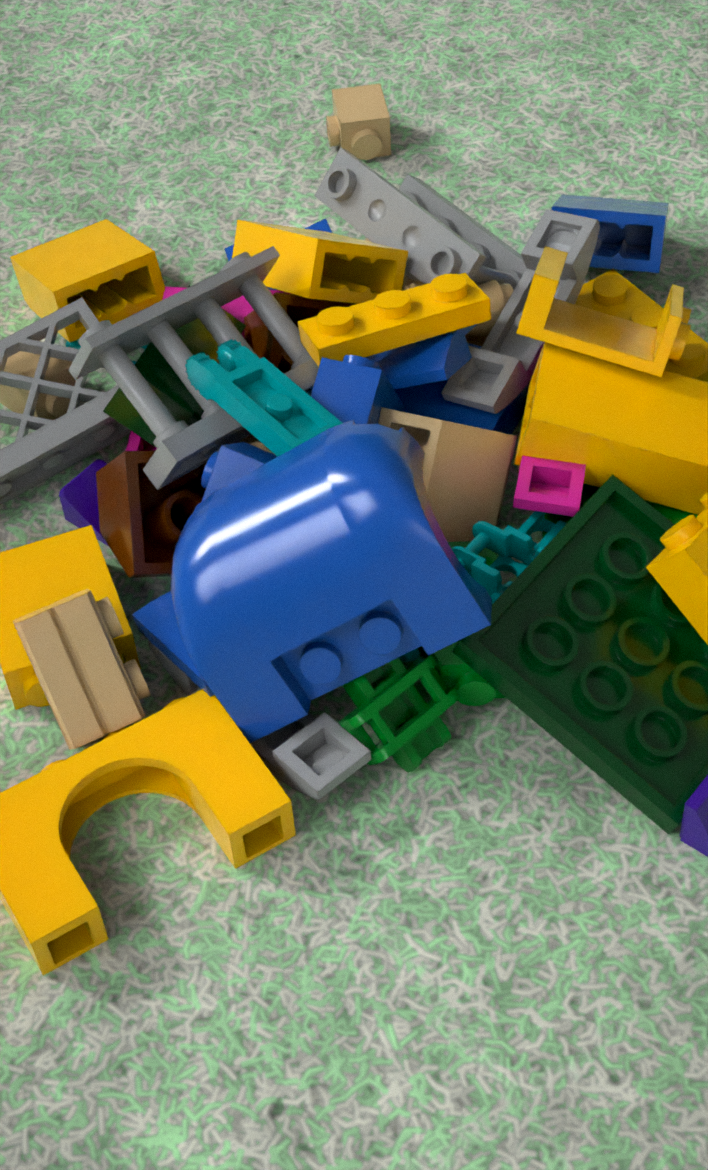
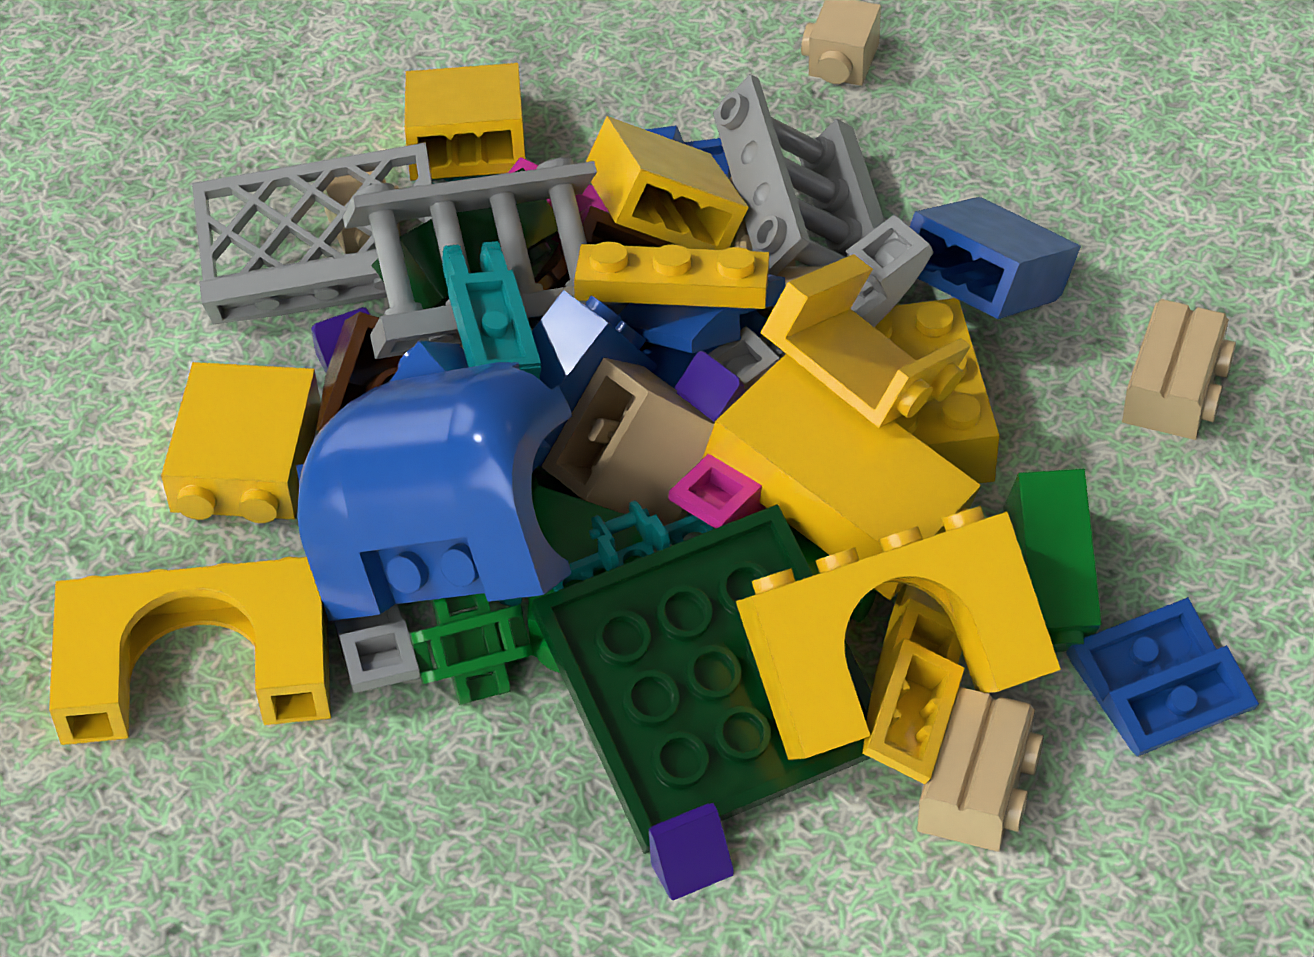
camera: 25 degrees right, 0 degrees up
(81, 667) = (222, 495): tan brick -> none
(488, 403) = (709, 386): none -> dark purple slope

